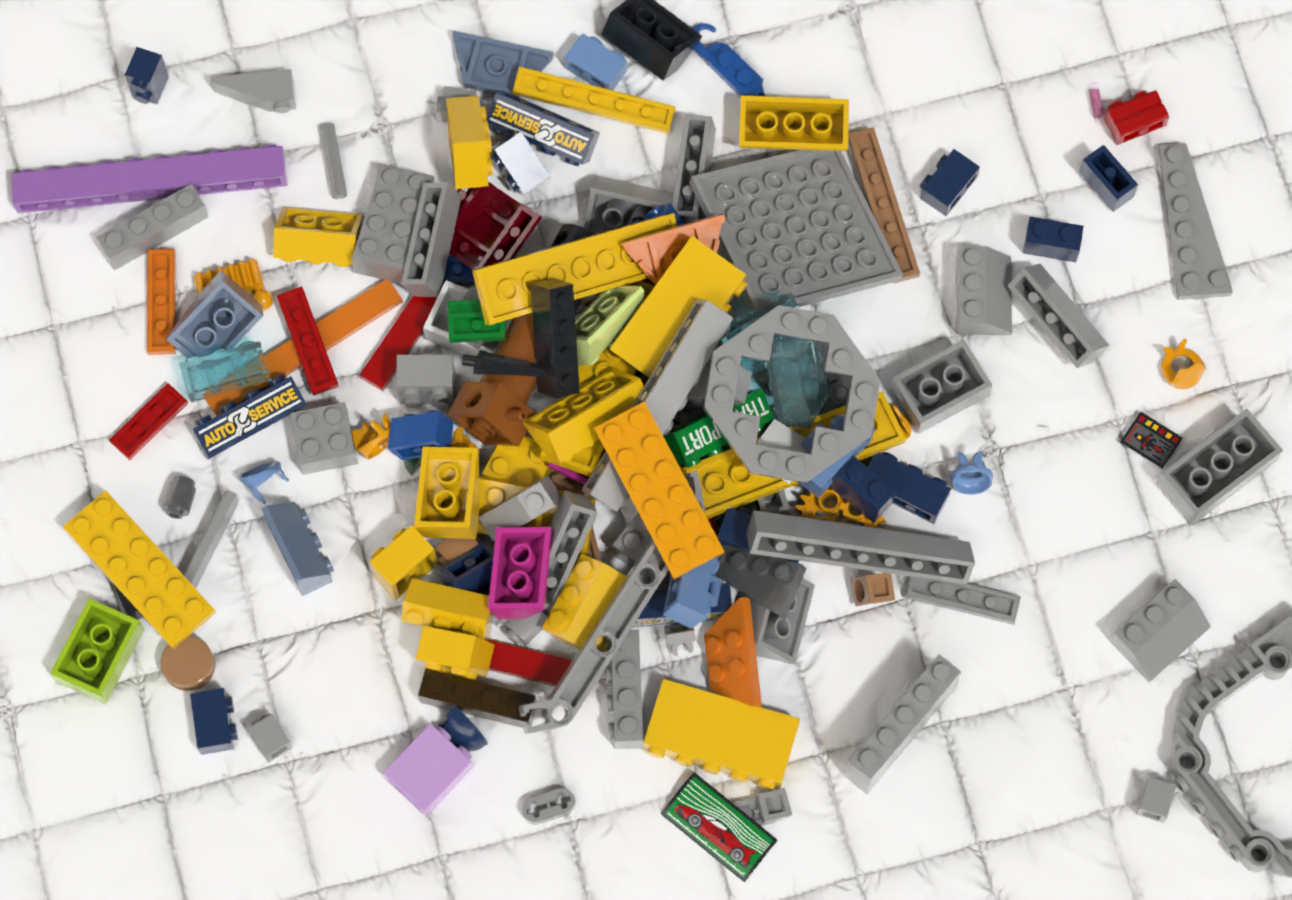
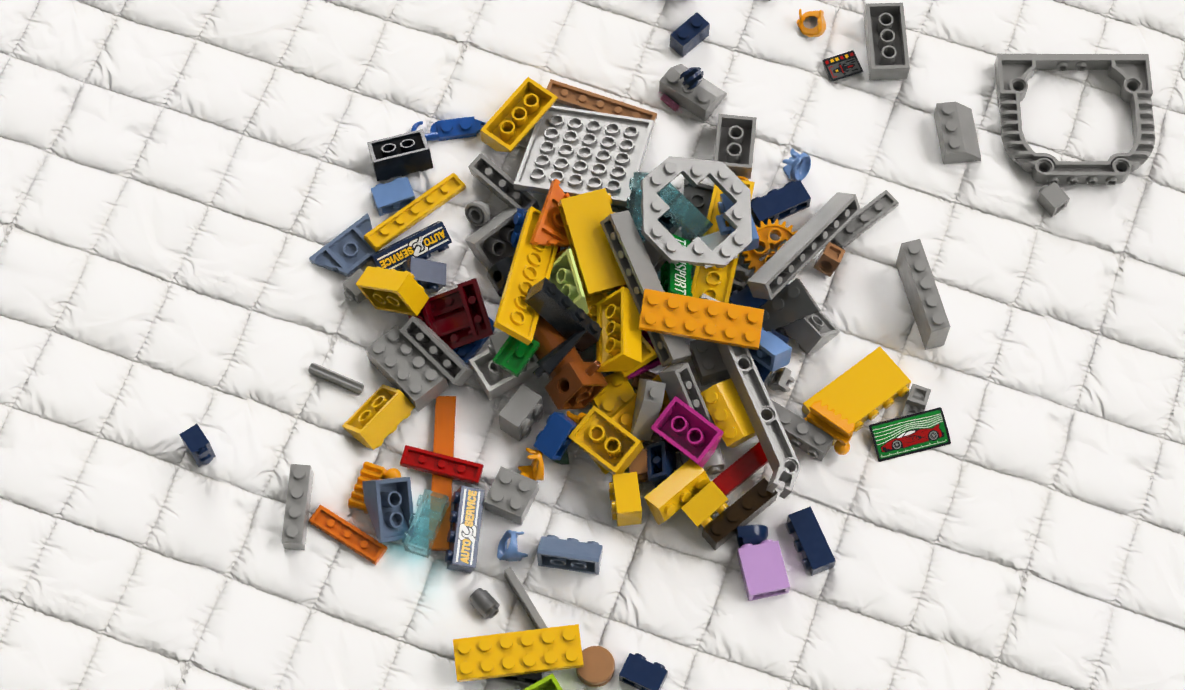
camera: 55 degrees left, 5 degrees down
(148, 179) = (263, 490): medium lavender brick -> none
(148, 421) = (420, 591): red tile -> none
(265, 90) = (259, 387): light grey slope -> none
(269, 737) = (677, 648): light grey brick -> none
(398, 341) = (480, 415): red tile -> none
(500, 799) = (810, 541): none -> dark blue brick
(547, 799) = (836, 520): light grey beam -> none
(643, 167) = (478, 213): none -> light grey brick
(653, 728) = (832, 425): none -> light orange gear
(733, 655) = (817, 357): orange wing -> none
(863, 489) = (773, 220): dark blue brick -> none
(949, 182) = (614, 63): dark blue brick -> none
(949, 278) = (668, 101): none -> bright pink piece
(985, 277) = (692, 77): none -> dark blue arm
(1058, 315) = (737, 61): light grey brick -> none

